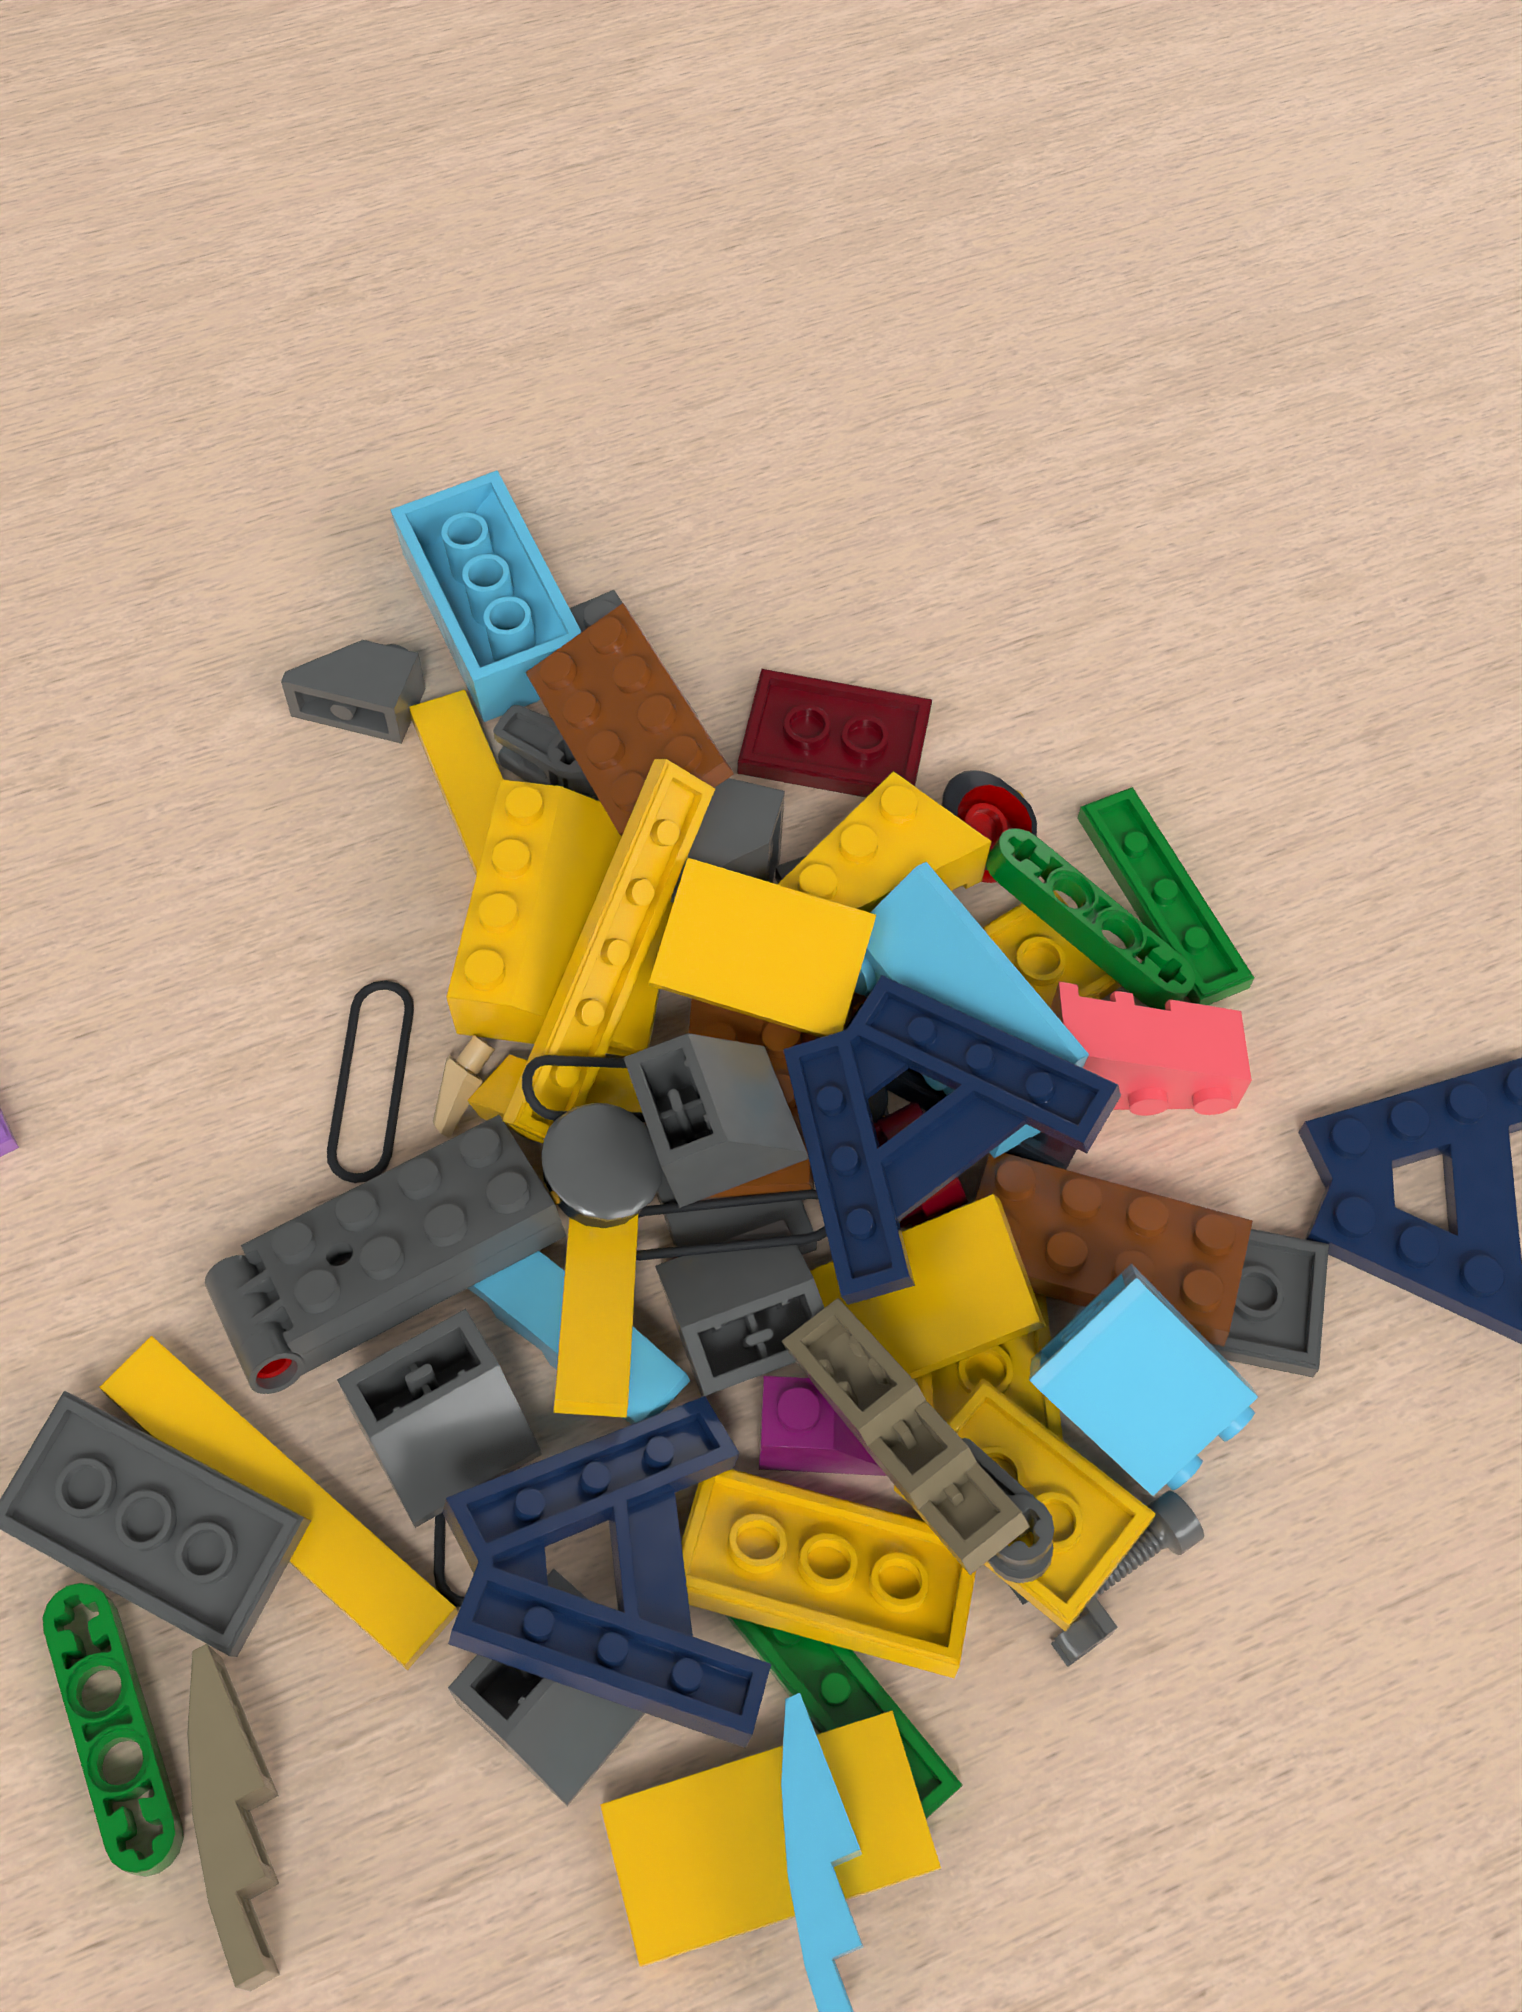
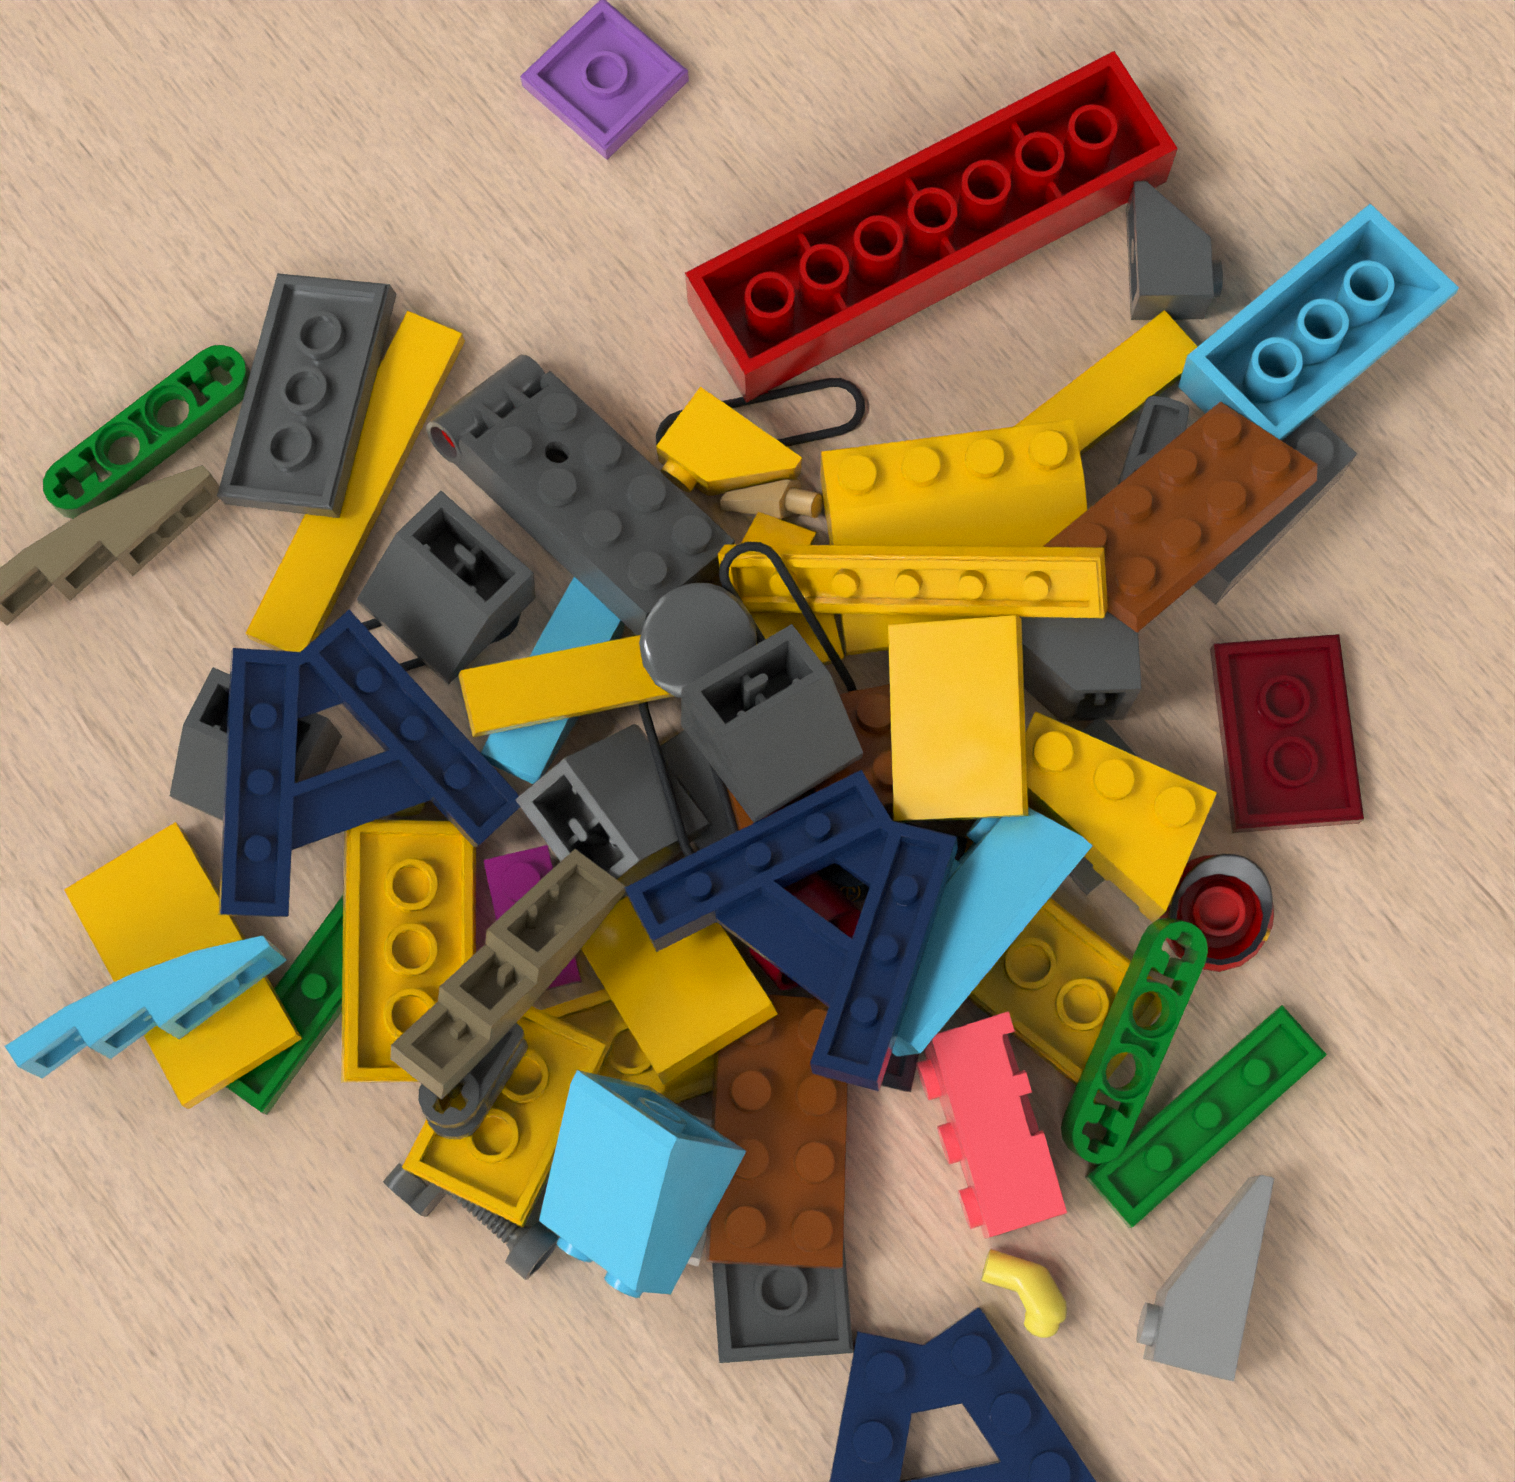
camera: 80 degrees right, 15 degrees up
(244, 872) = (929, 226): none -> red brick
(391, 1108) = (721, 450): none -> yellow slope
(1291, 1072) = (1035, 1287): none -> light yellow arm
(1322, 929) = (1207, 1298): none -> light grey slope

